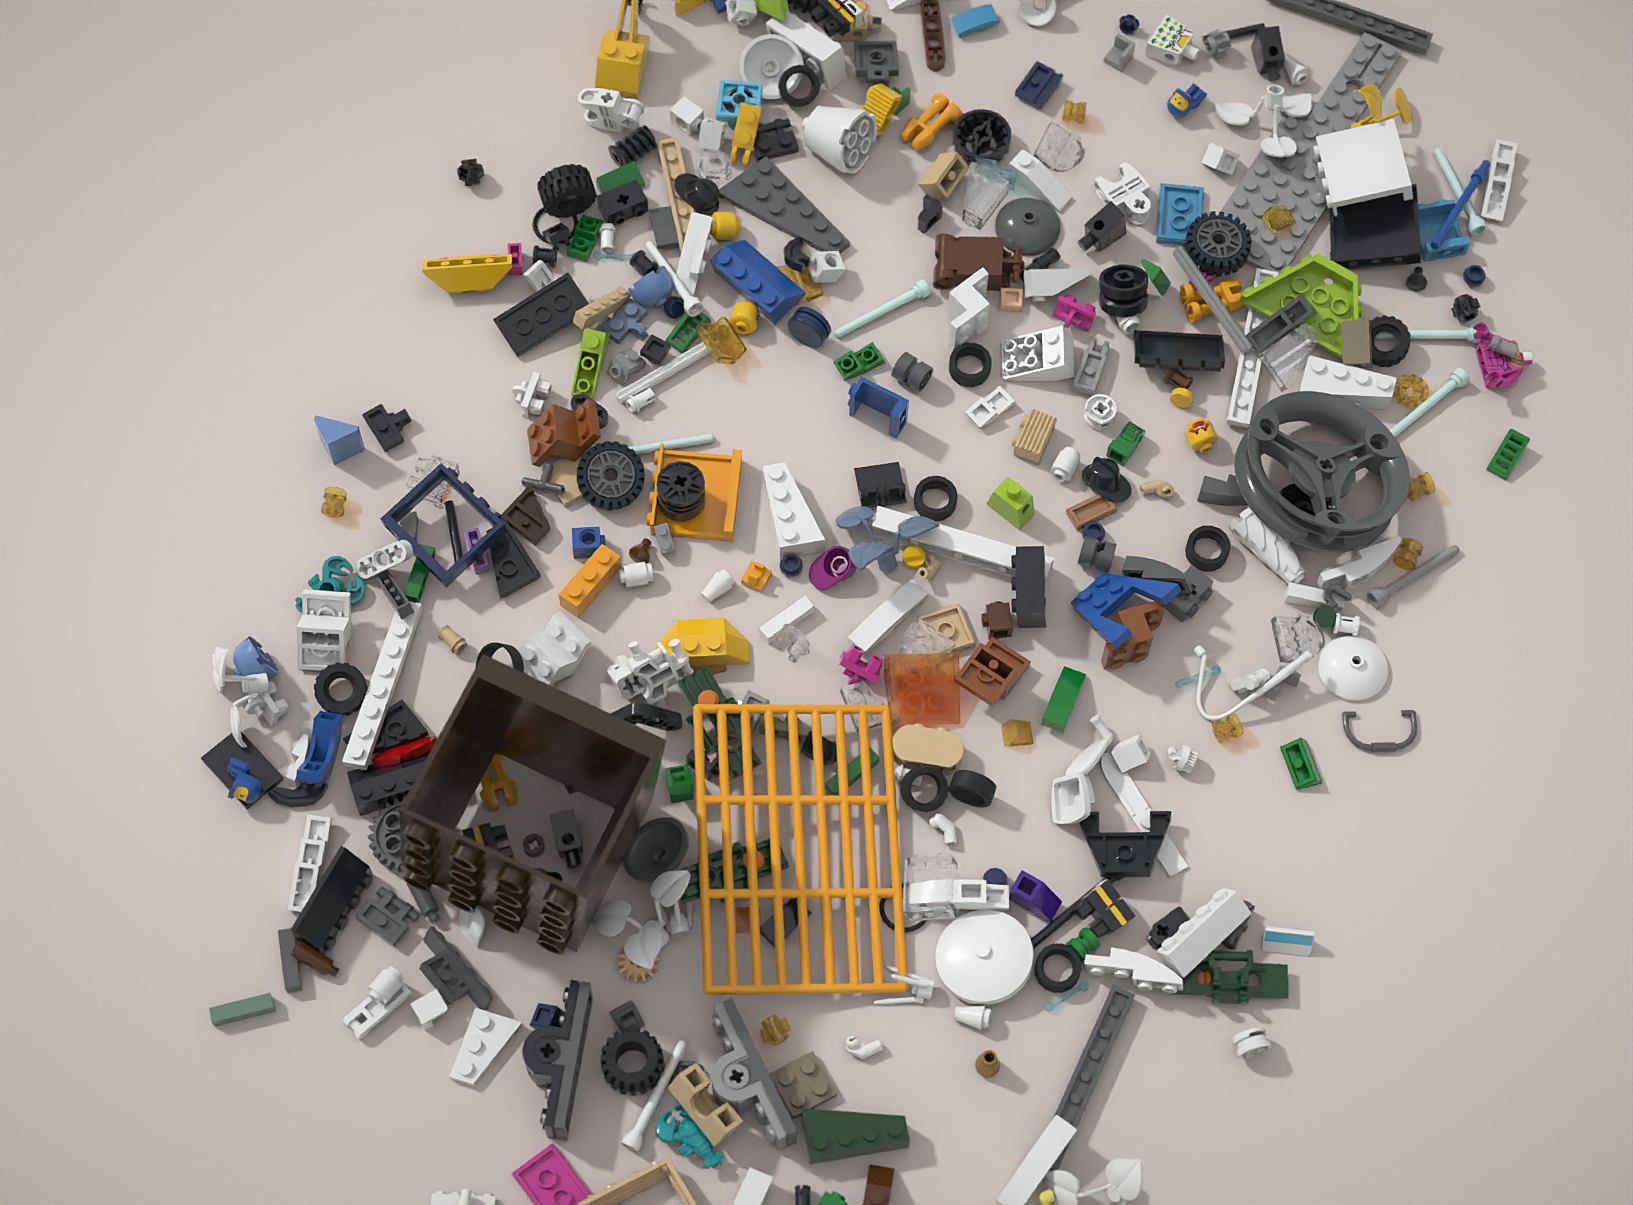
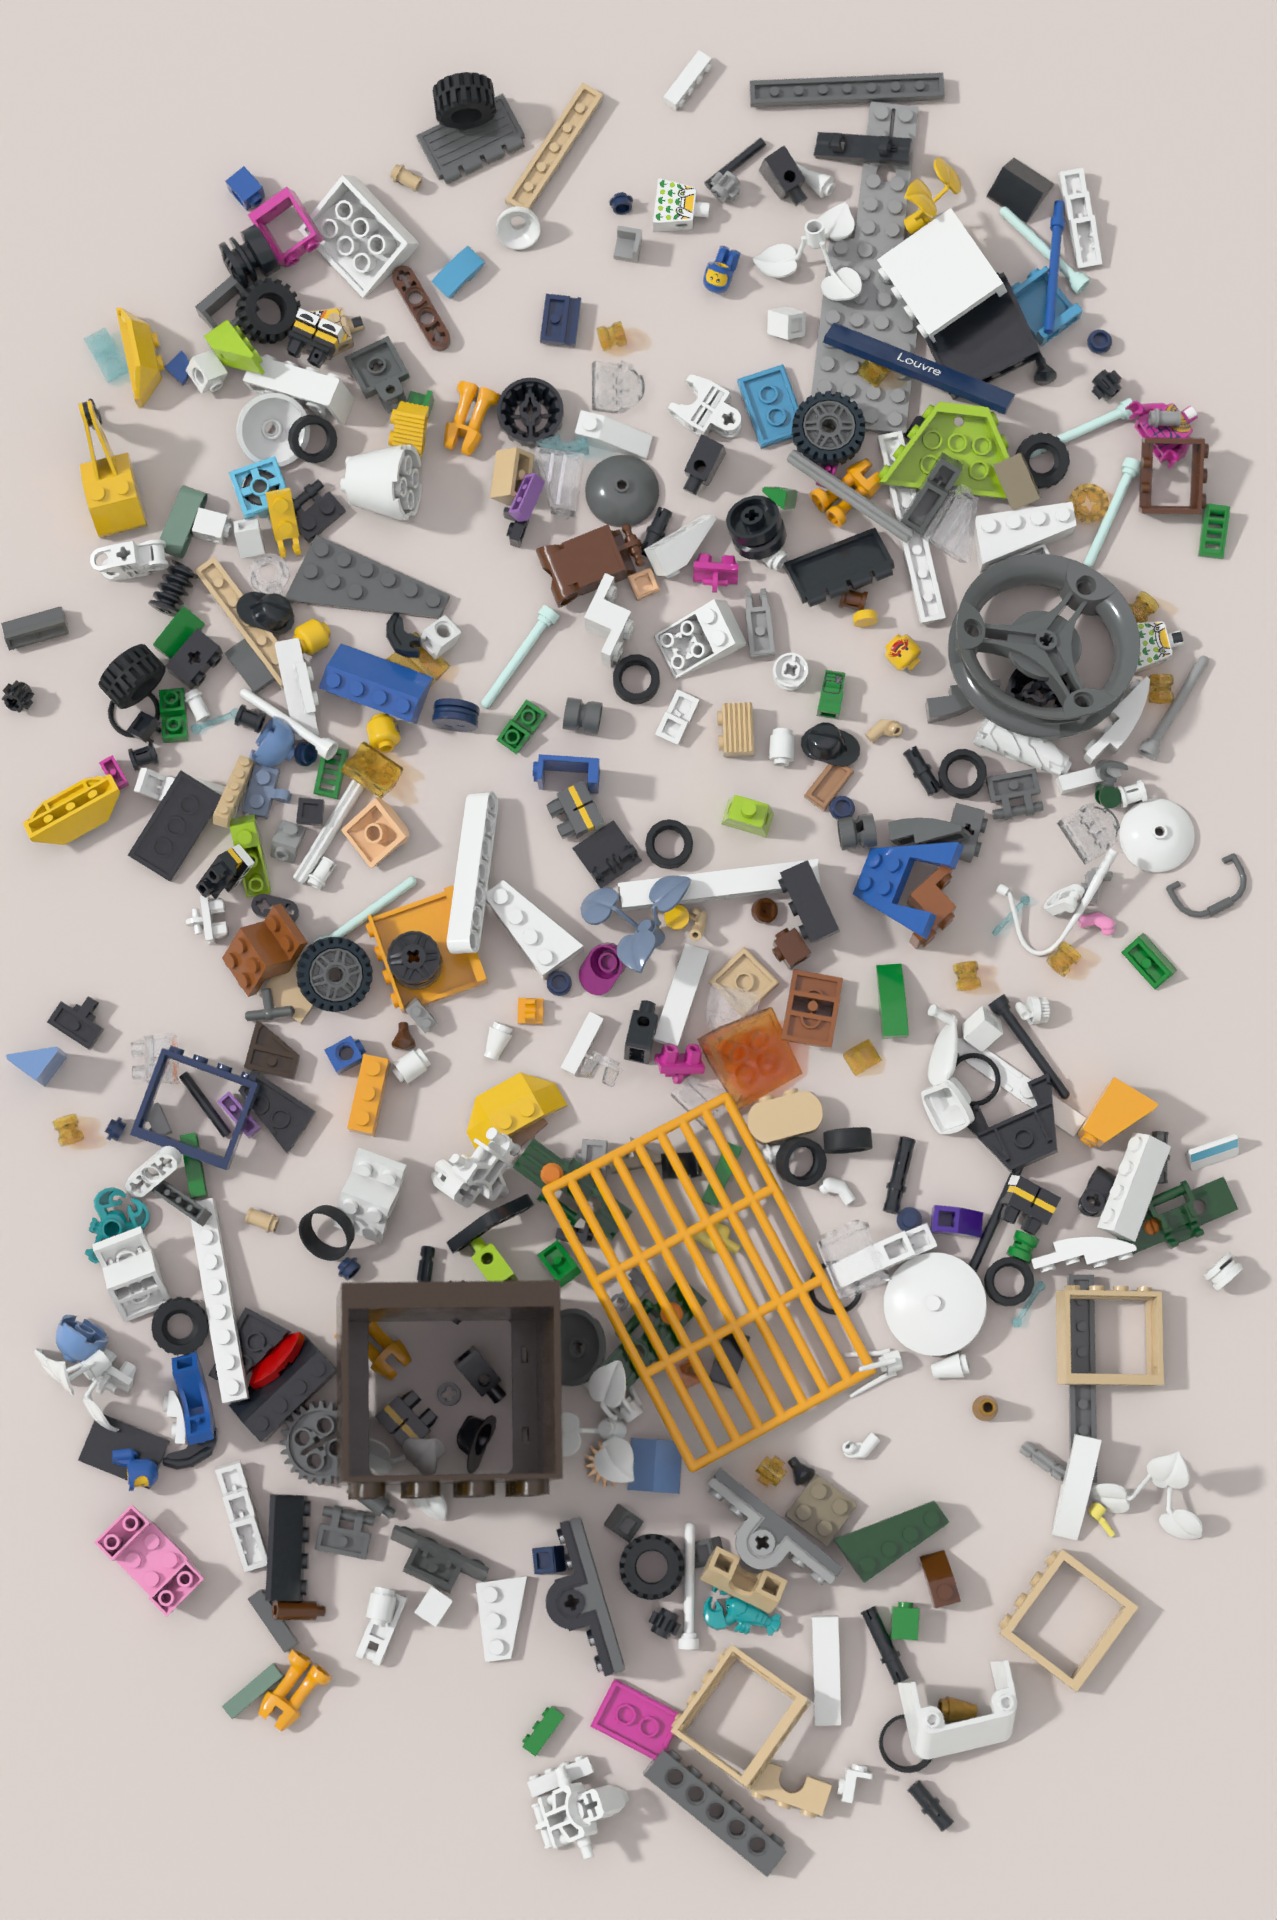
camera: 20 degrees left, 15 degrees up
(214, 859) = (150, 1559): none -> bright pink slope
(258, 1024) = (291, 1713): none -> light orange piece
(371, 517) = (115, 1129): none -> dark blue plate
(469, 1158) = (542, 1730): none -> green piece
(511, 131) = (35, 628): none -> dark grey piece
(563, 361) = (225, 872): none -> black hips
(619, 1114) = (664, 1623): none -> black gear
(658, 107) = (180, 522): none -> sand green beam
(677, 982) = (655, 1466): none -> medium blue slope
(700, 387) = (376, 832): none -> light nougat slope
(738, 829) = (638, 1283): none -> dark grey piece
(761, 446) = (472, 873): none -> white beam
(800, 1045) = (801, 1472): none -> black rock
(810, 813) = (724, 1232): none -> light yellow piece
(836, 629) = (641, 1033): none -> black torso
(874, 440) = (579, 810): none -> dark grey hips
(947, 192) = (526, 497): none -> medium lavender piece
(989, 582) = (764, 910): none -> reddish brown tile
(998, 845) = (896, 1186): none -> black pin
(1017, 1131) = (1043, 1460): none -> light grey axle
(1108, 1085) = (1154, 1336): none -> tan window
(1126, 786) = (996, 1072): none -> black tyre
(1137, 705) = (966, 975): none -> clear yellow wheel
(1155, 743) = (1002, 1008): none -> black piece
(1175, 533) = (922, 771): none -> black pin
(1214, 867) = (1114, 1113): none -> light orange slope
(1245, 576) = (1014, 786): none -> dark grey plate
(1272, 711) = (1100, 920): none -> bright pink arm
(1314, 228) = (919, 368): none -> dark blue tile
(1343, 60) = (864, 148): none -> black hinge
(1415, 518) = (1156, 645): none -> torso
(1457, 141) = (1019, 189): none -> black slope
(1513, 403) = (1198, 476): none -> reddish brown window

